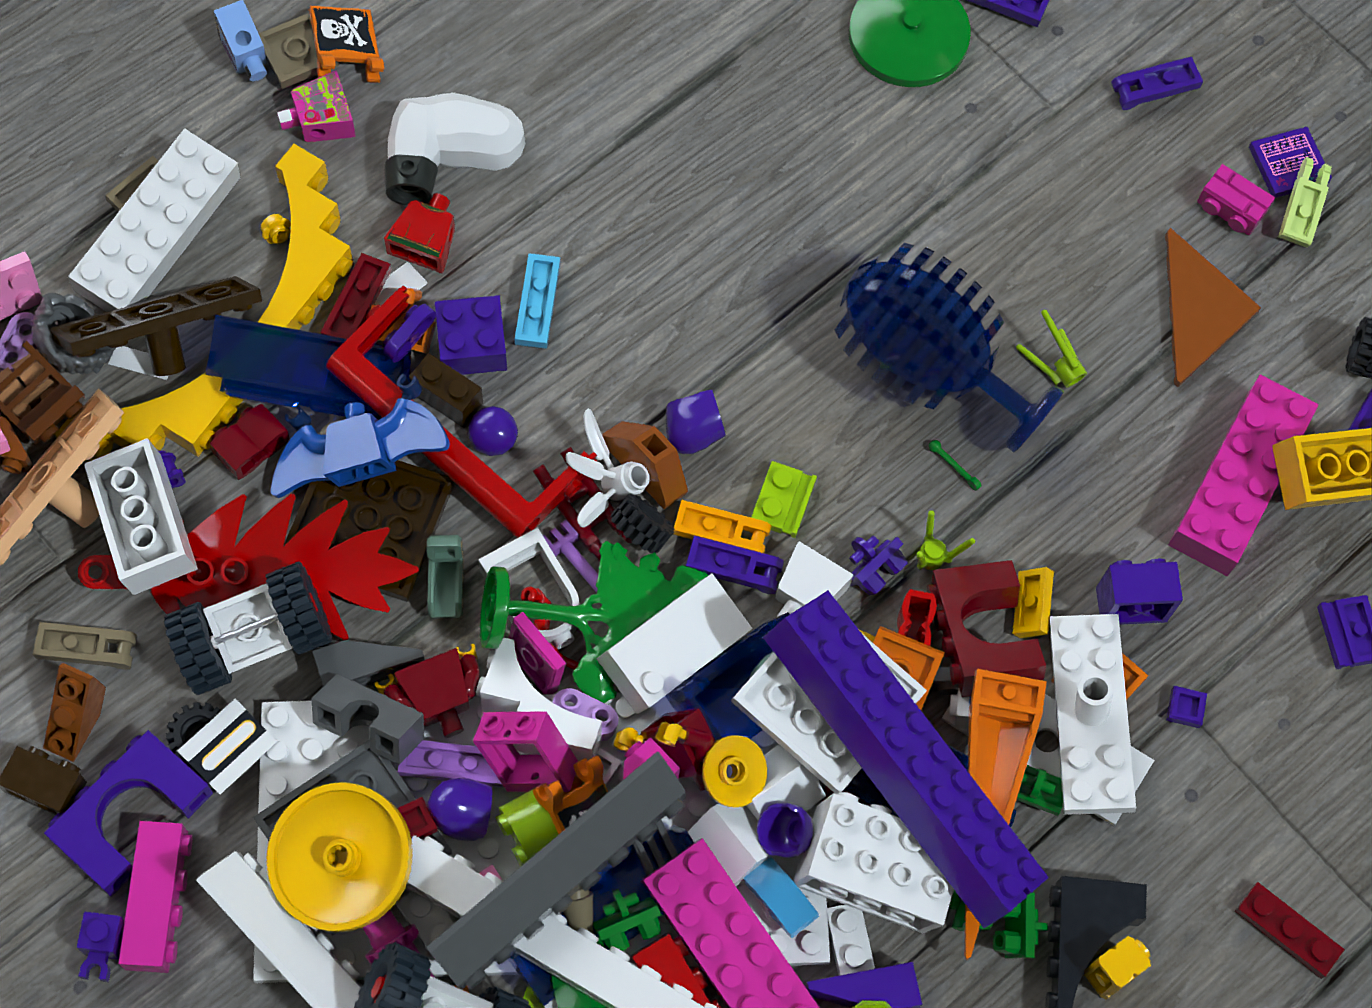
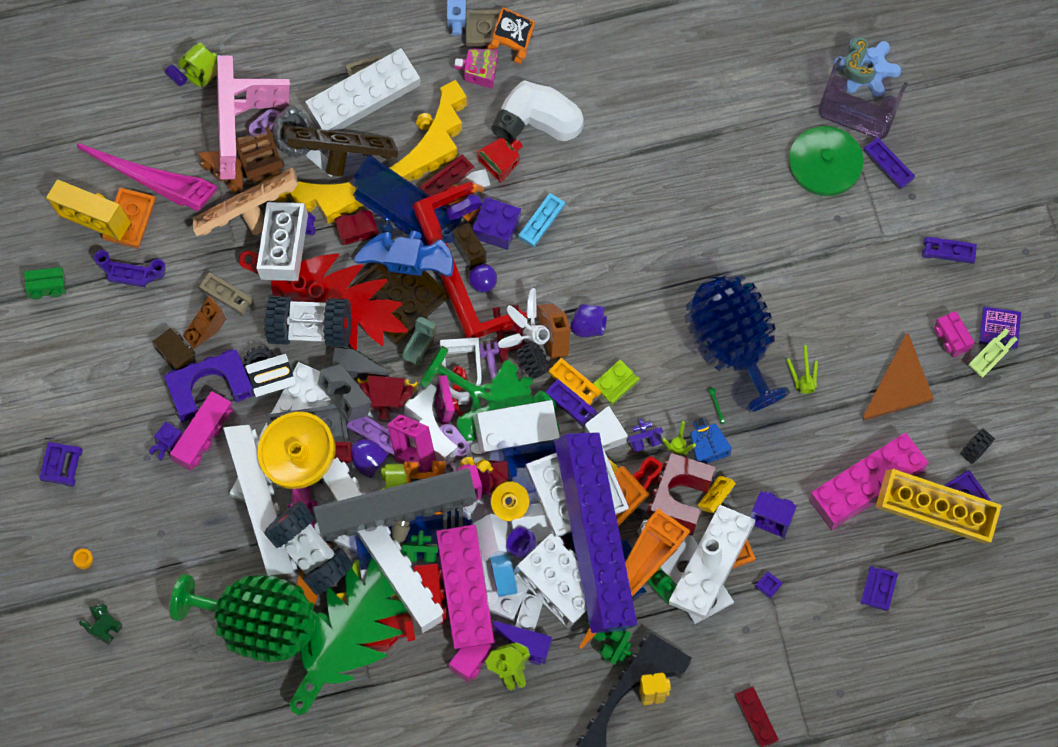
camera: 30 degrees right, 0 degrees up
(979, 520) = (709, 442): none -> blue torso

